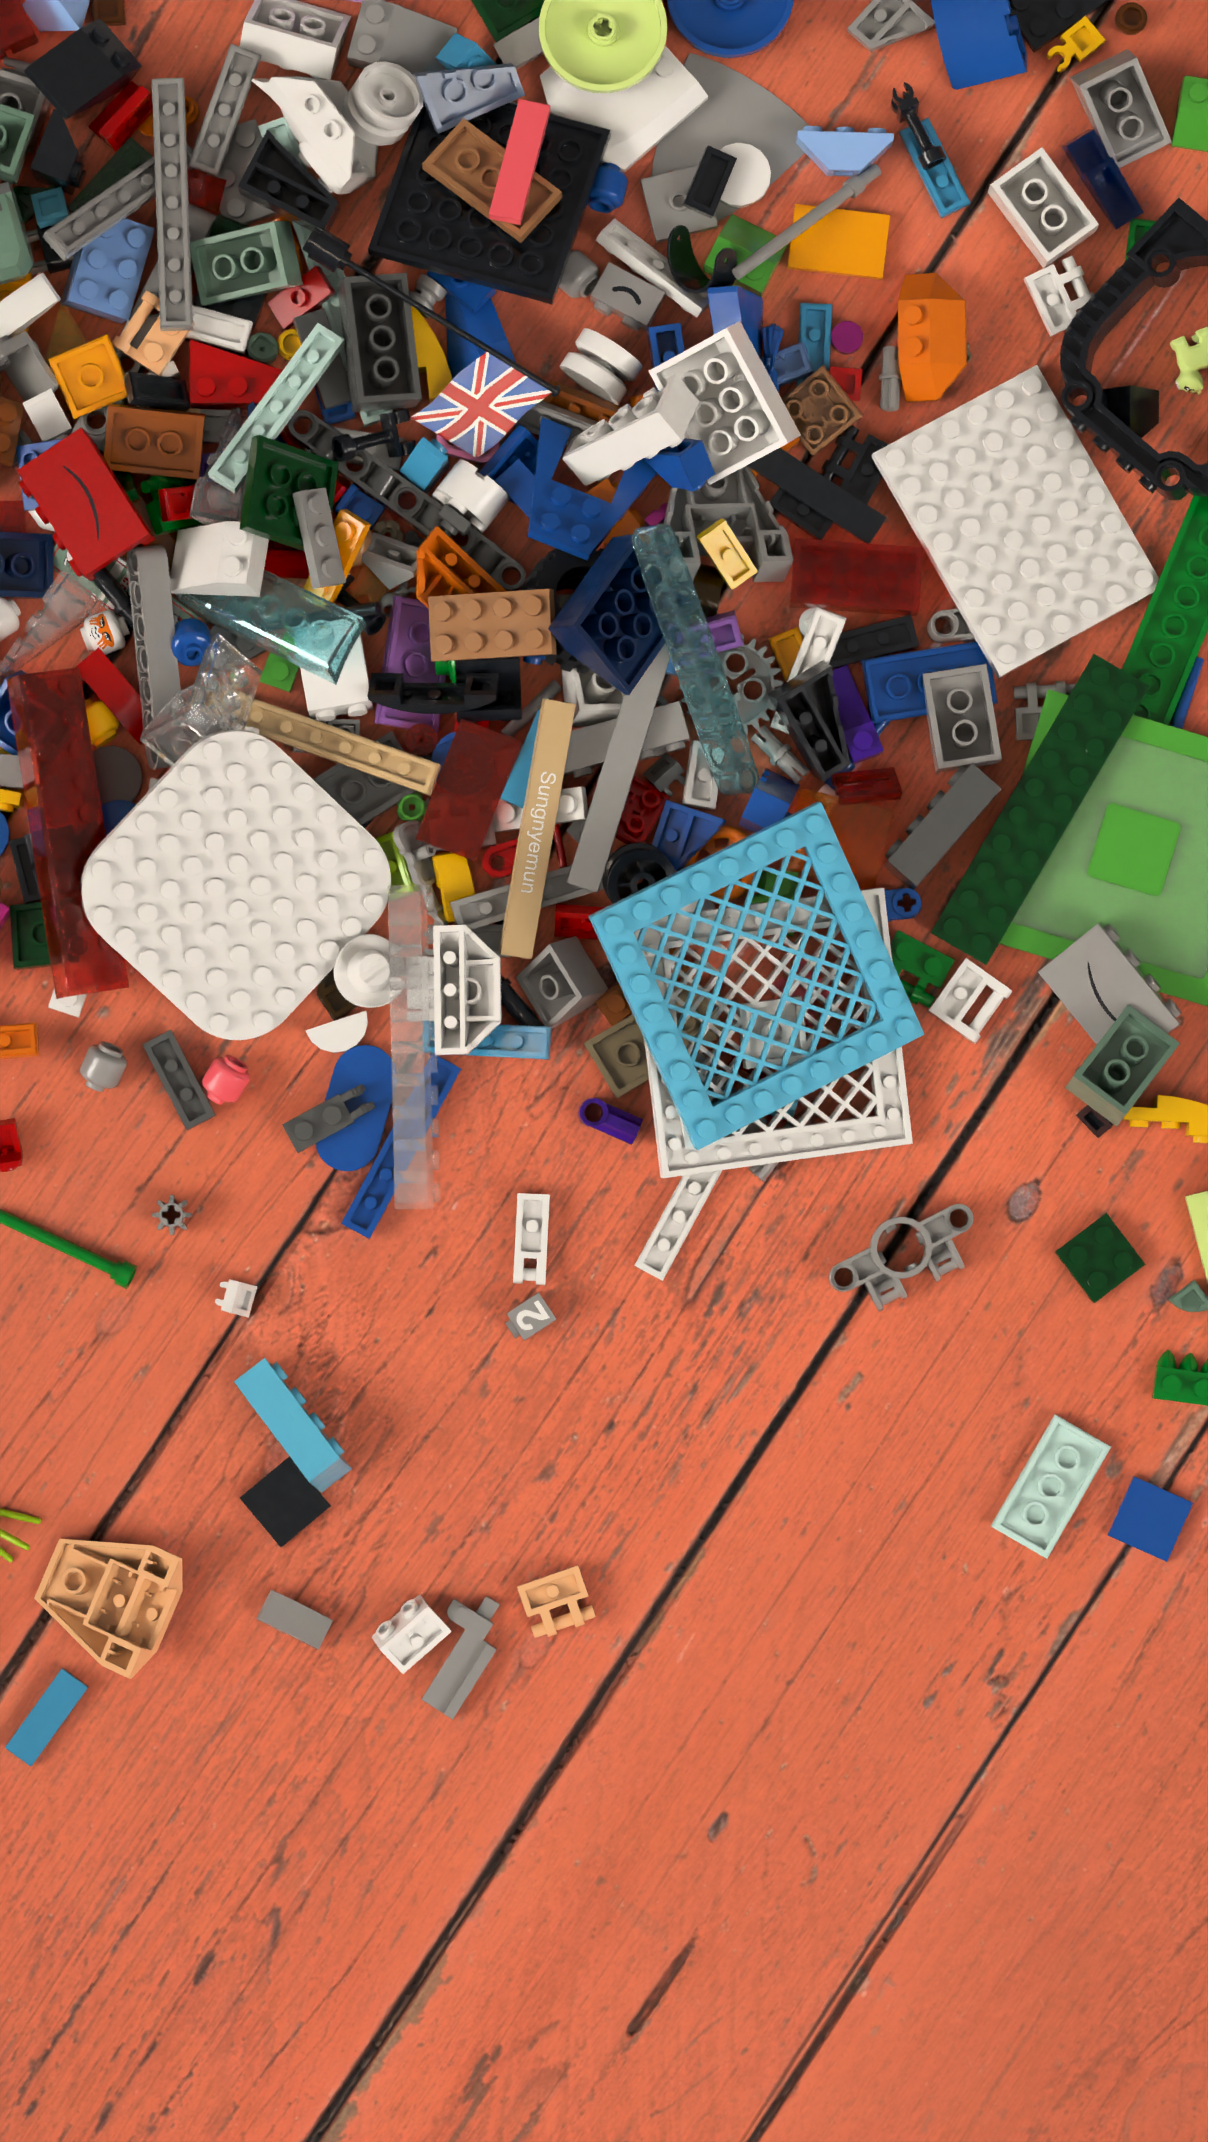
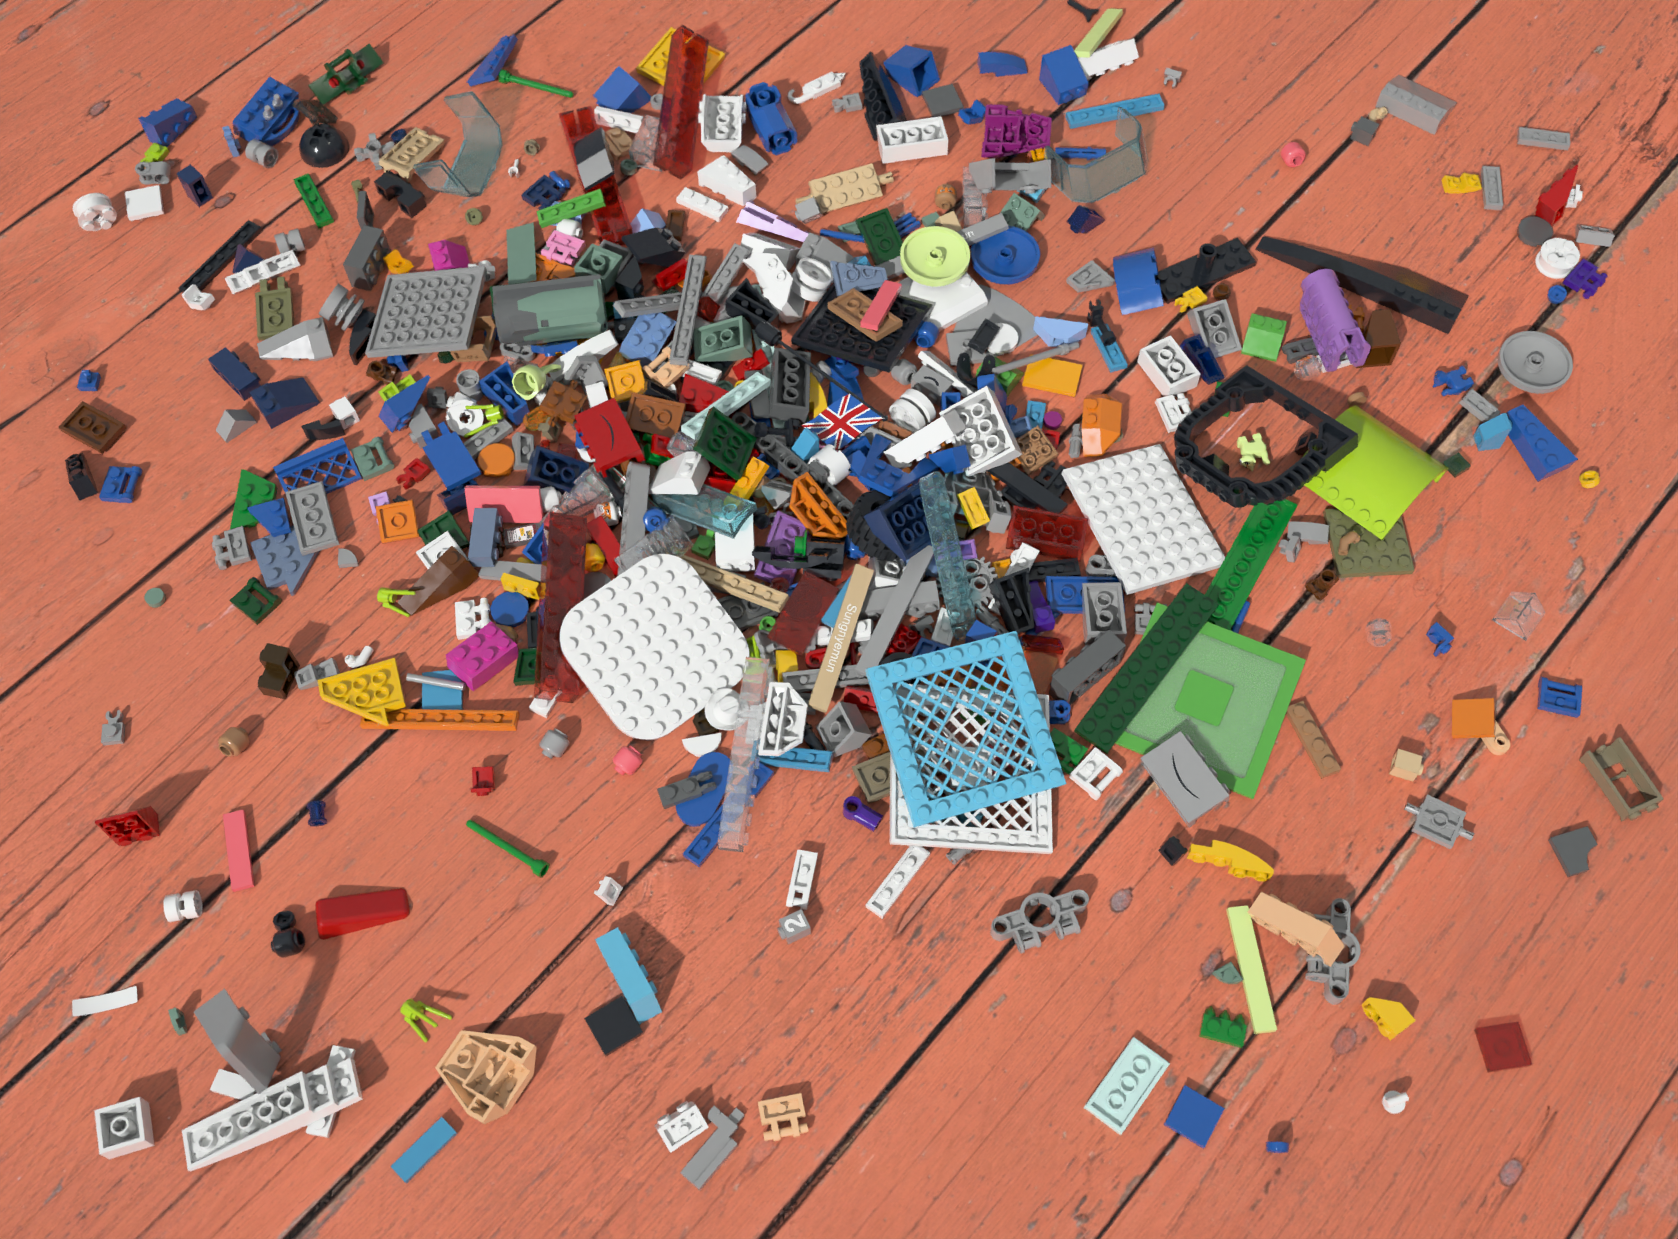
camera: 10 degrees right, 25 degrees down
(178, 1221) = (574, 831): light grey gear -> none
(179, 1080) = (599, 758): dark grey plate -> none
(294, 1619) = (604, 1104): light grey slope -> none
(319, 538) = (738, 466): light grey plate -> none
(491, 625) = (830, 519): medium nougat plate -> none
(1099, 1258) = (1168, 940): dark green plate -> none
(1122, 1065) = (1191, 816): sand green slope -> none

